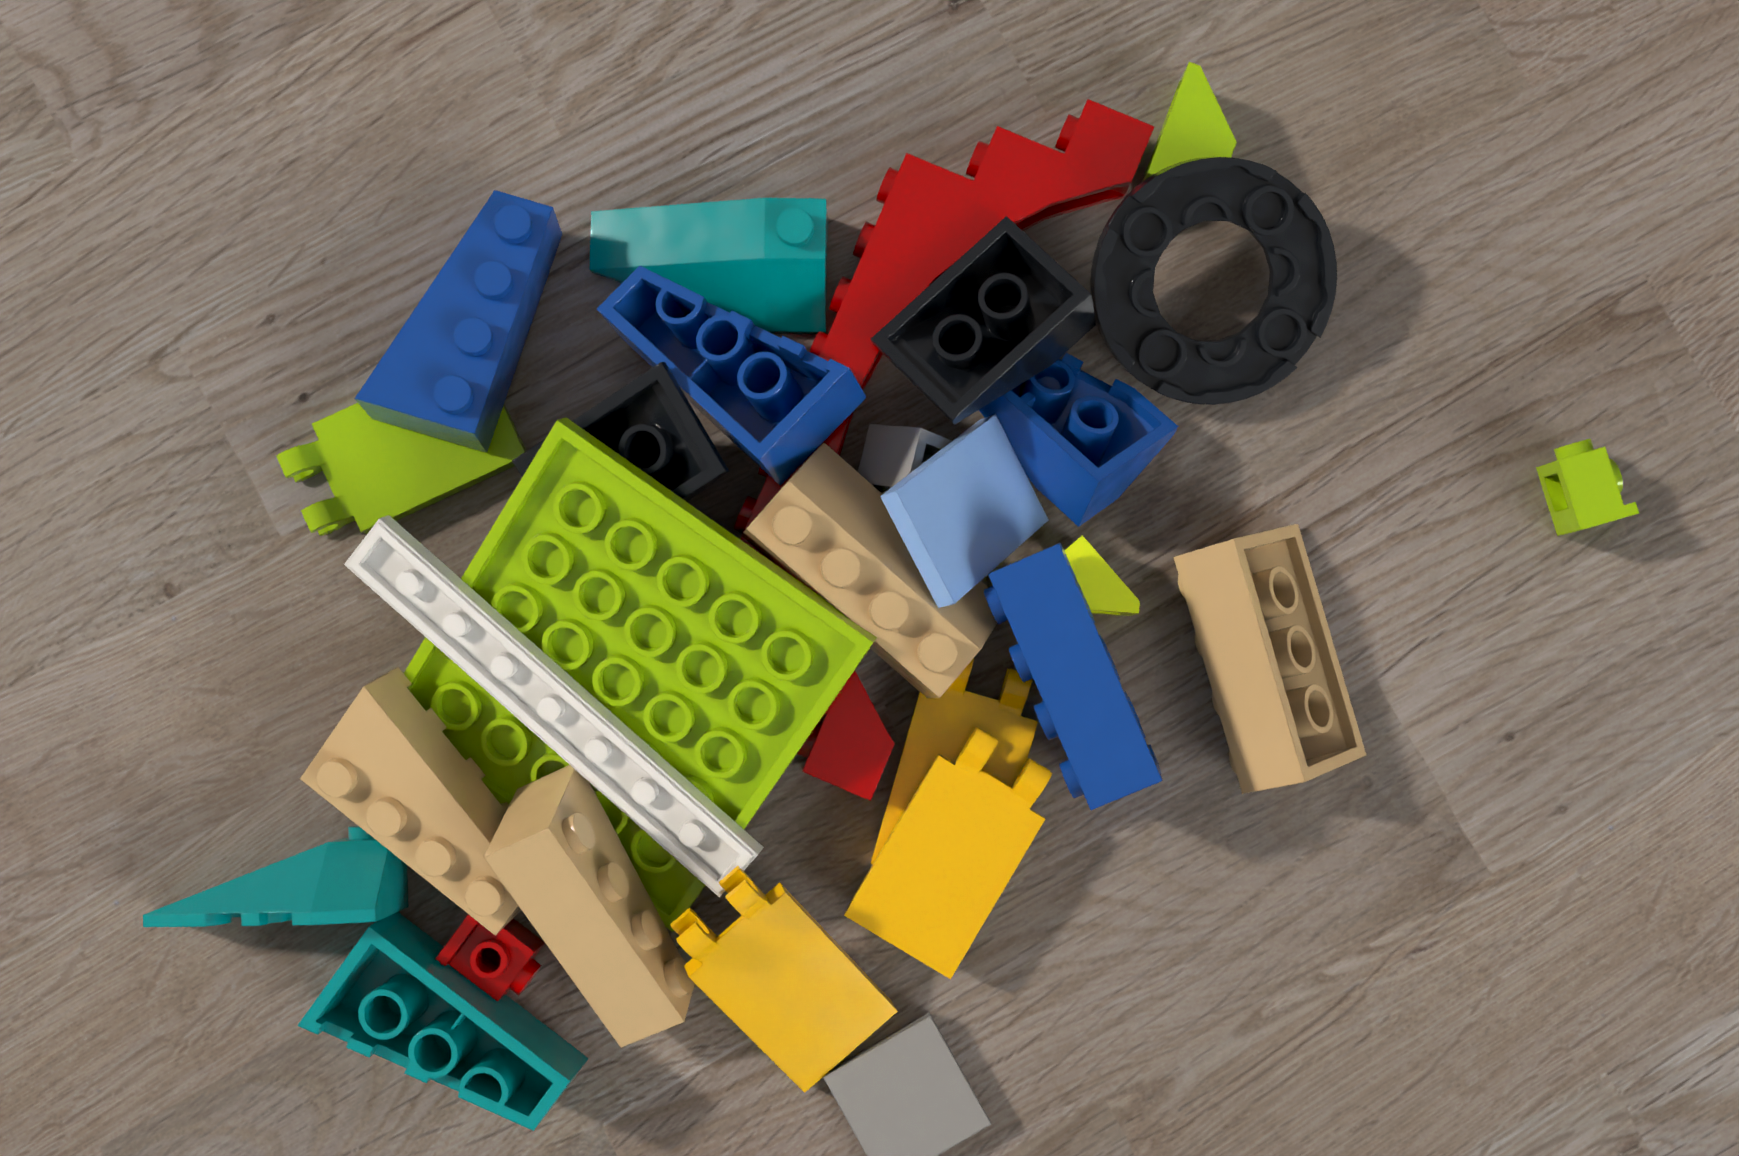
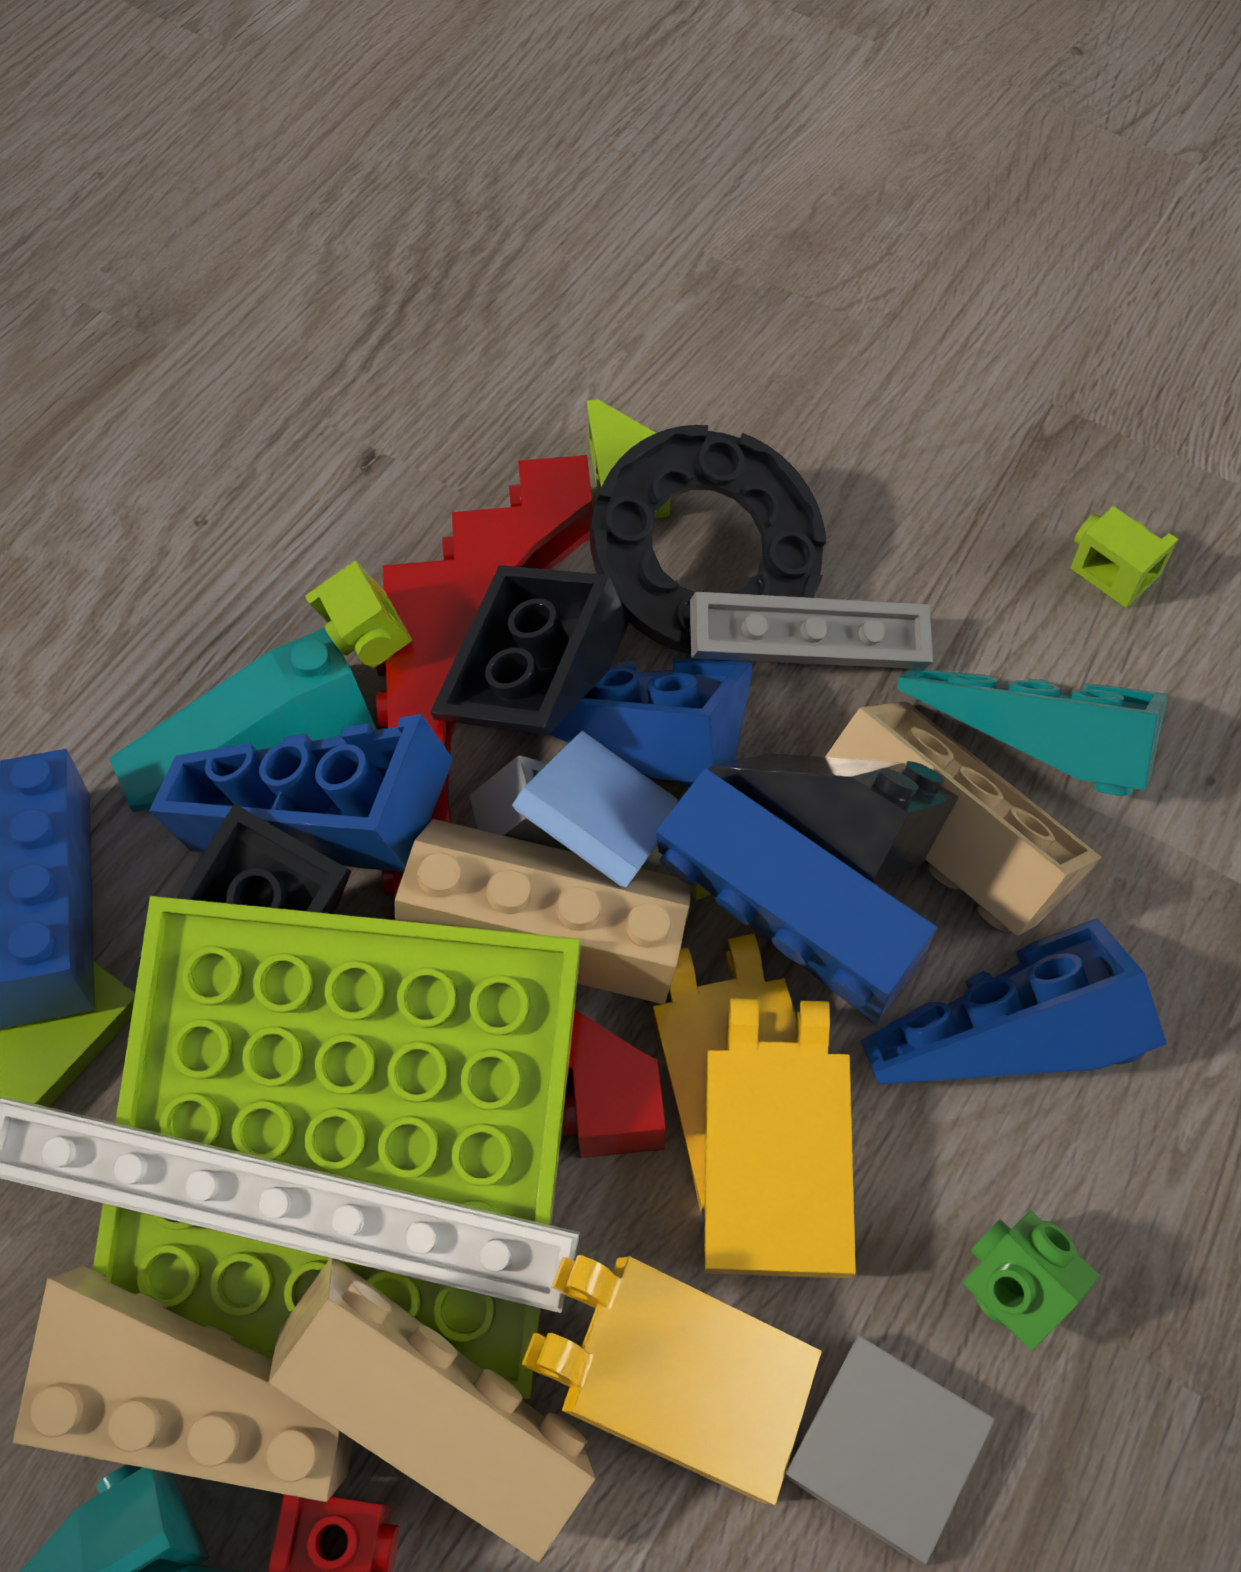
camera: 30 degrees left, 25 degrees down
(857, 209) = (359, 615): none -> lime brick
(1075, 1051) = (1029, 1277): none -> bright green brick
(1159, 614) = (860, 811): none -> black slope
(1223, 862) = (1061, 1009): none -> blue wedge
(1249, 422) = (810, 630): none -> light grey plate
(1418, 635) = (1092, 734): none -> teal wedge

